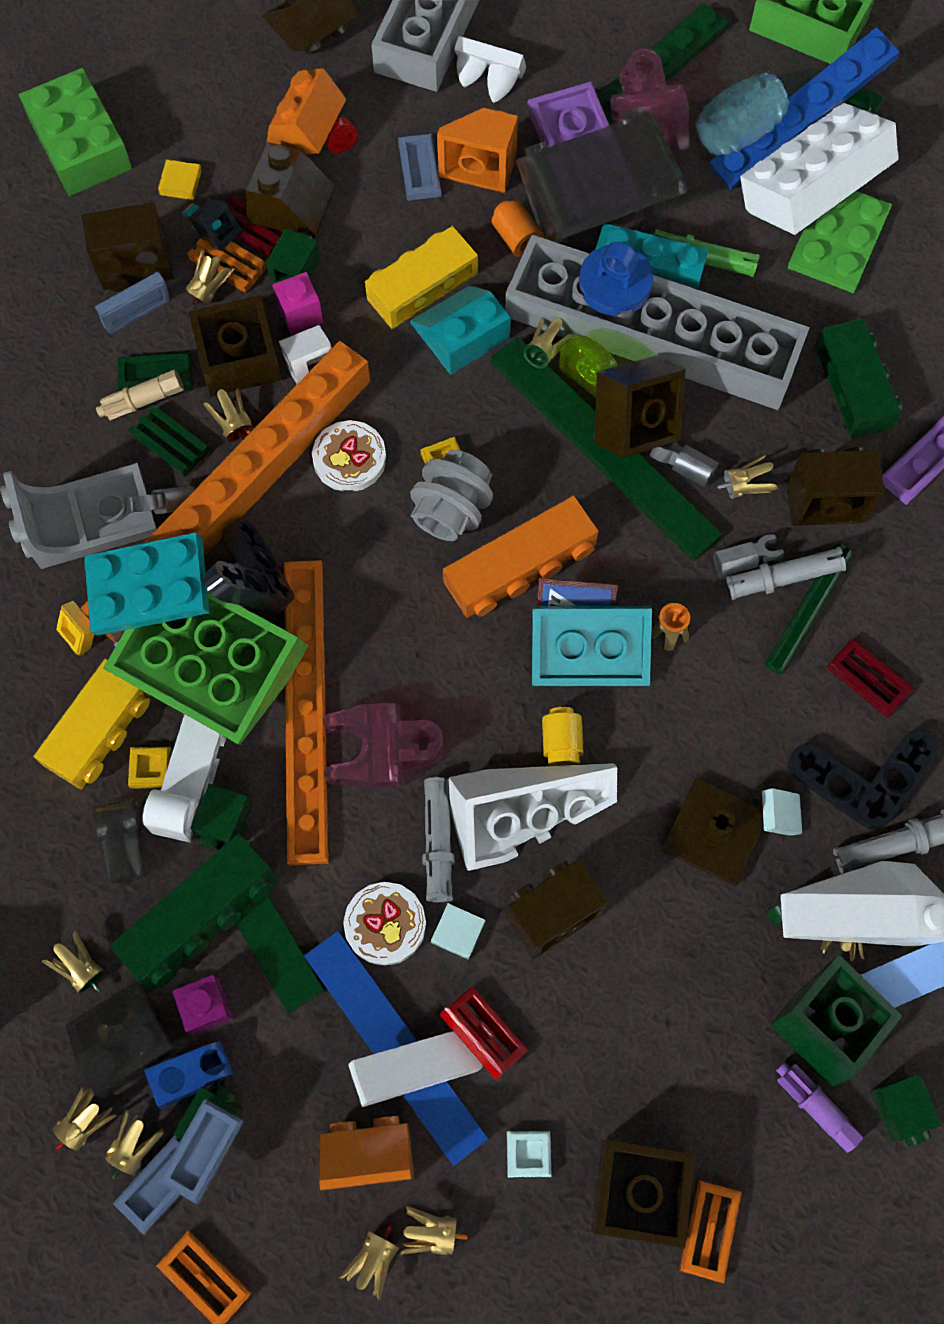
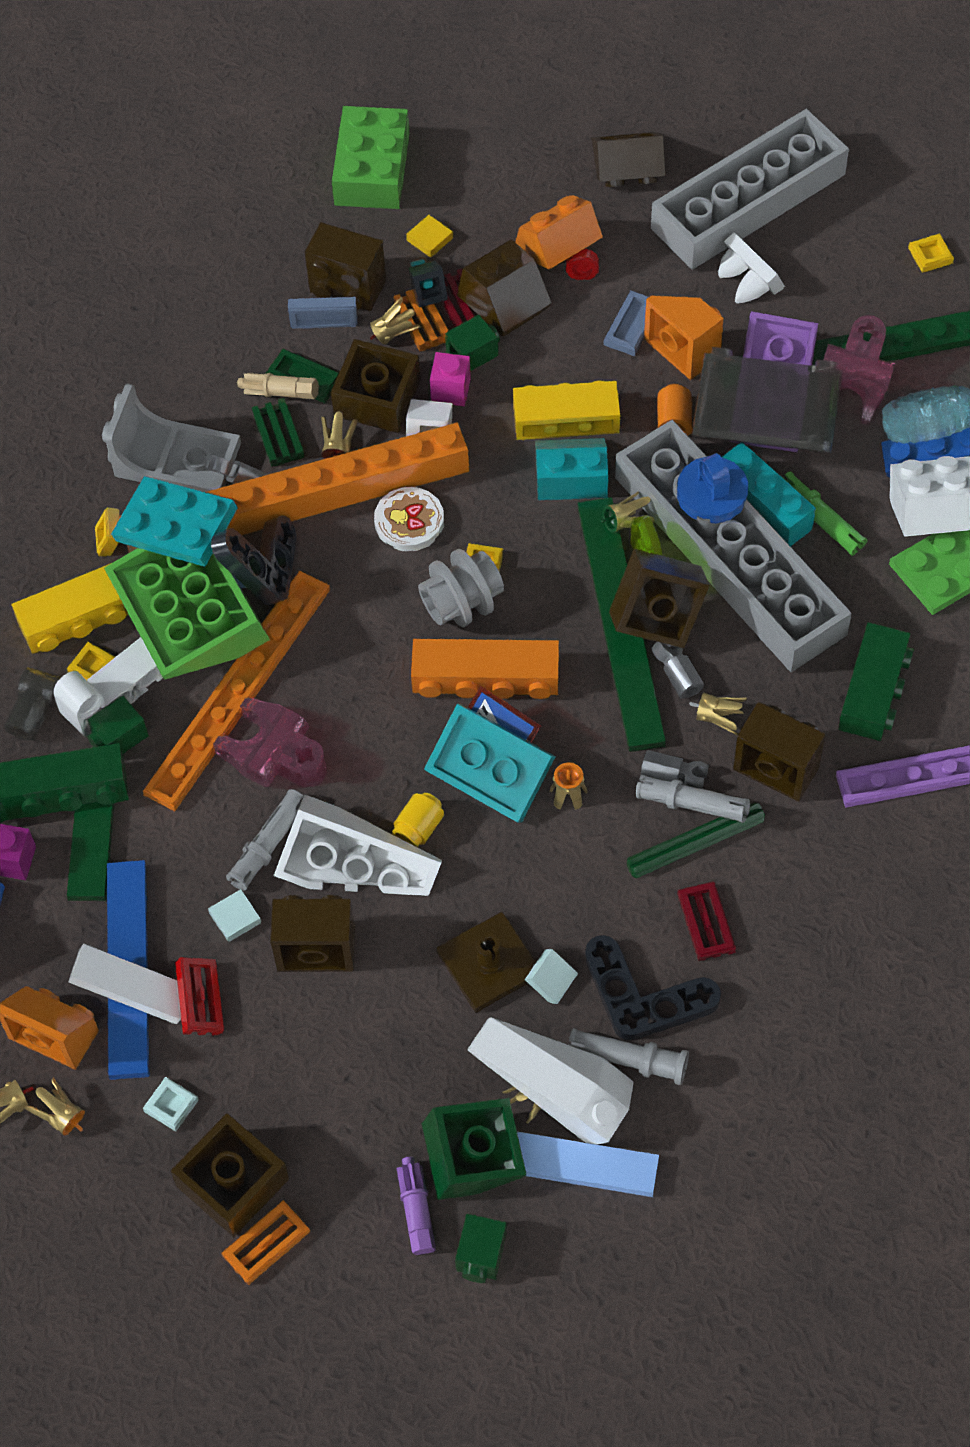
camera: 35 degrees right, 10 degrees down
(384, 923) = (184, 877): tile -> none

